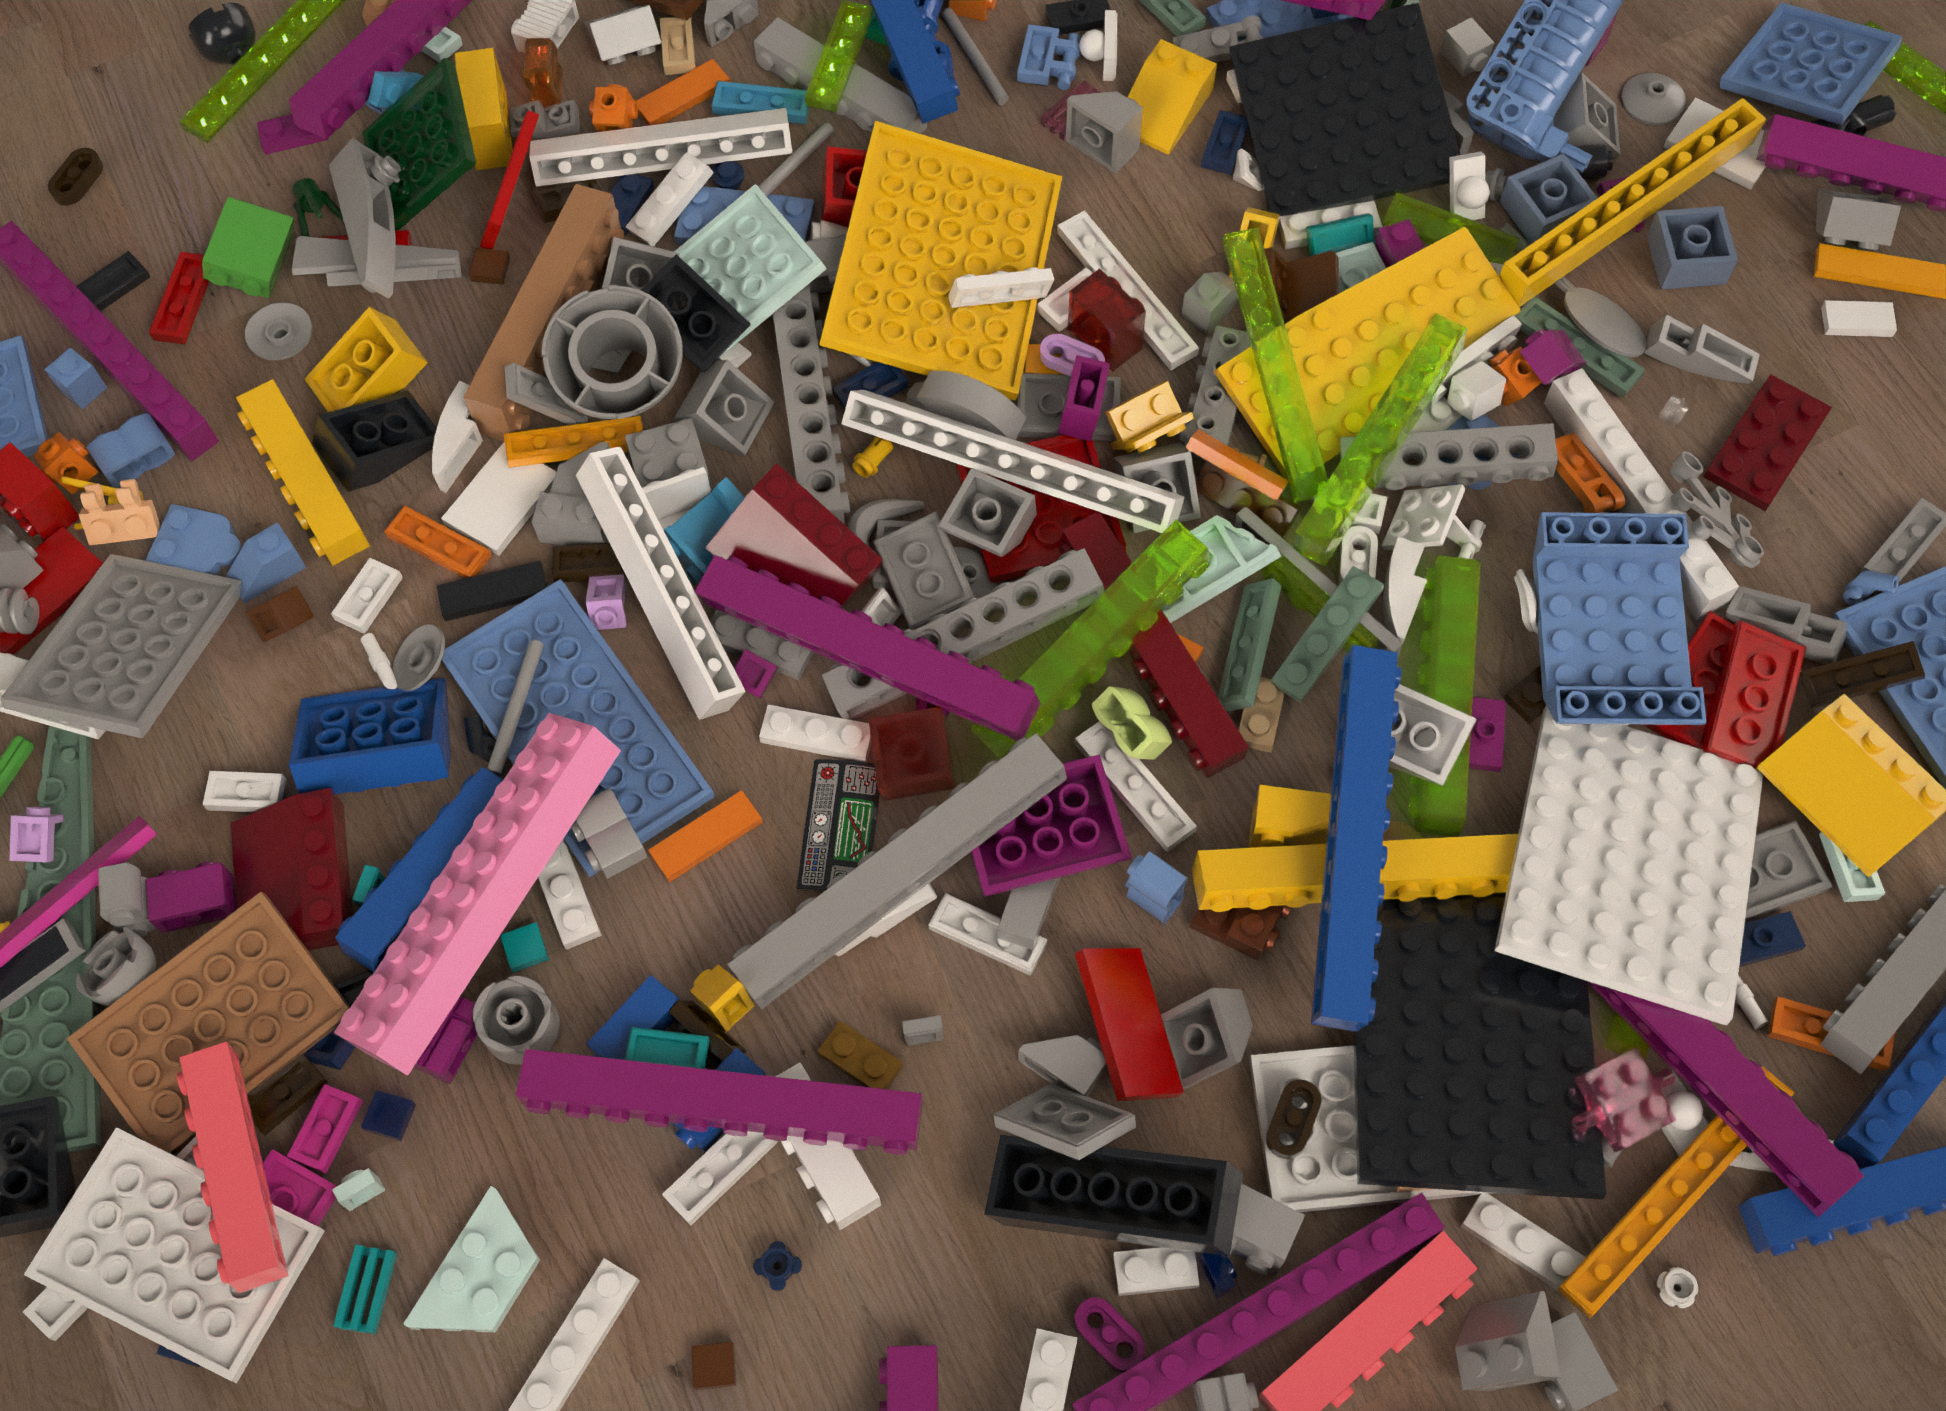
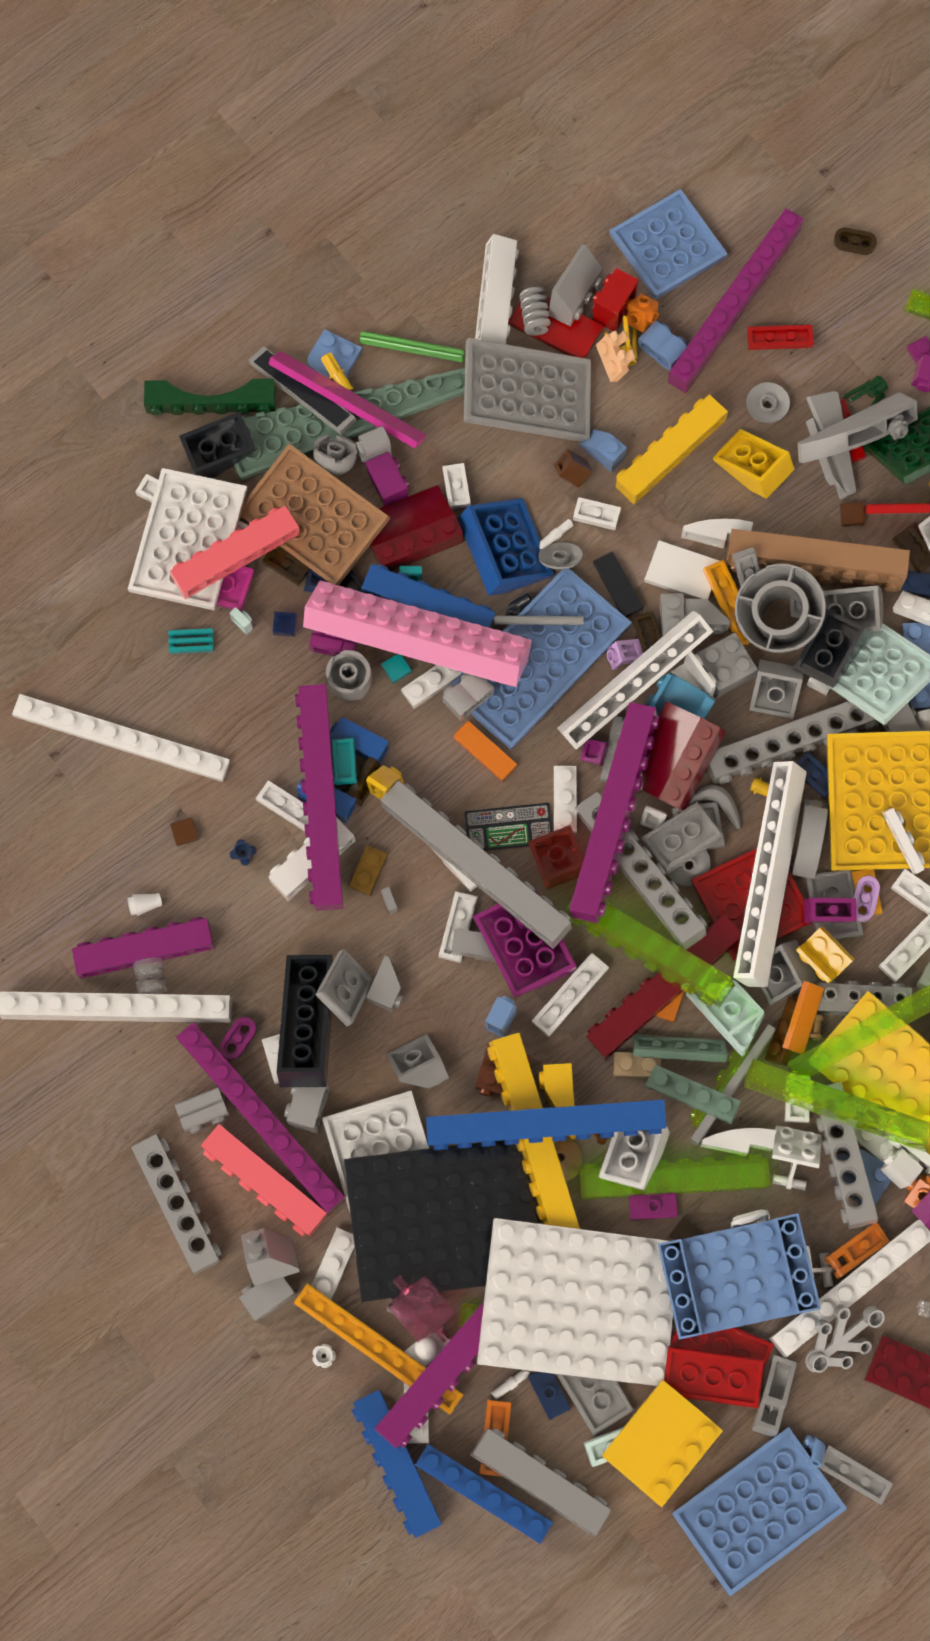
camera: 80 degrees right, 10 degrees up
(33, 835) = (402, 383): lavender bracket -> none
(76, 378) = (704, 296): medium blue brick -> none
(114, 281) = (783, 291): black tile -> none
(195, 541) = (611, 403): medium blue plate -> none
(248, 248) = (822, 364): bright green brick -> none
(325, 1129) = (271, 593): dark pink plate -> none
(373, 438) = (705, 485): black slope -> none
(438, 543) = (643, 543): orange tile -> none
(478, 1274) = (210, 697): light aqua wing -> none
(989, 513) = (725, 867): light grey slope -> none
(1106, 318) = (895, 919): clear red brick -> none
(1129, 1024) = (415, 1016): red tile -> none
(1130, 720) = (607, 984): yellowish green brick -> none
(1219, 1273) = (281, 1094): clear blue plate -> none
(1293, 1121) = (375, 1118): dark brown plate -> none
(1362, 559) = (758, 1108): white plate -> none
(1863, 674) = (743, 1445): dark brown plate -> none

